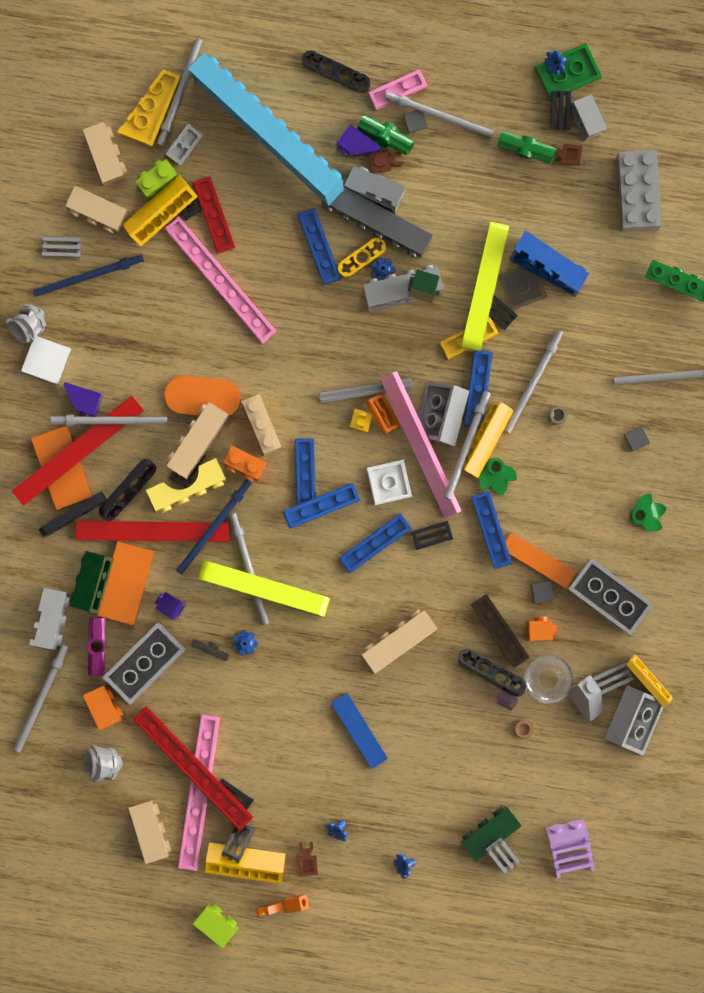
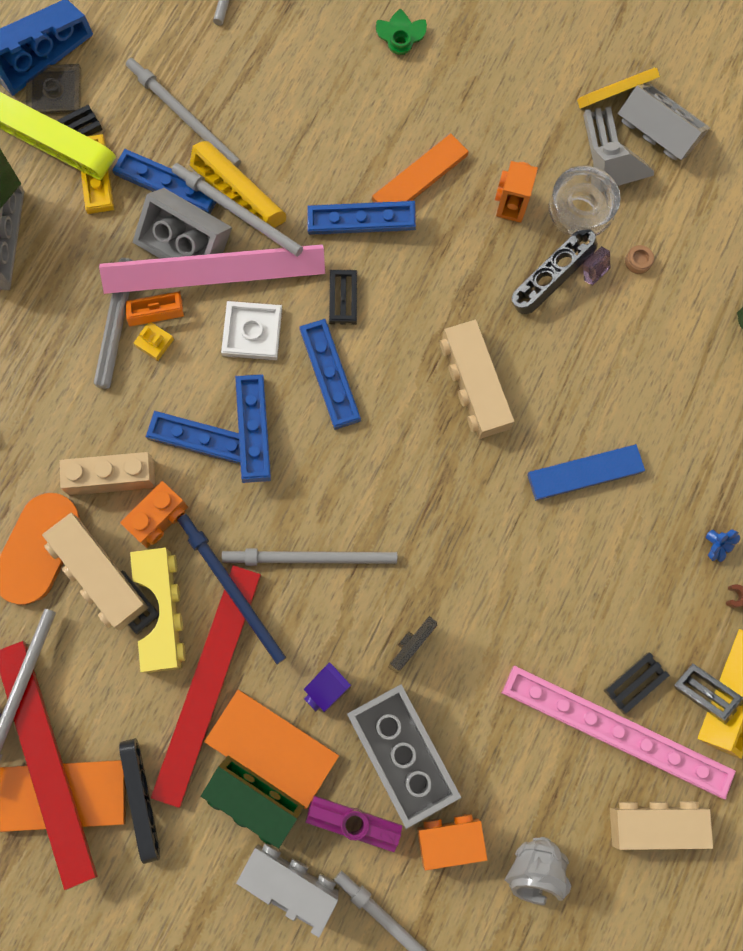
camera: 80 degrees left, 10 degrees down
(125, 487) = (135, 700): black beam -> none
(193, 768) = (580, 729): red tile -> none
(249, 642) = (411, 600): blue plant -> none
(263, 588) = (342, 544): neon yellow beam -> none
(497, 479) = (295, 192): green plate -> none
(500, 631) = (499, 247): dark brown plate -> none
(542, 592) = (463, 182): dark grey tile -> none
(557, 415) = (237, 96): dark tan tile -> none
(610, 597) = (496, 98): light grey brick -> none
(637, 439) = (301, 16): dark grey tile -> none

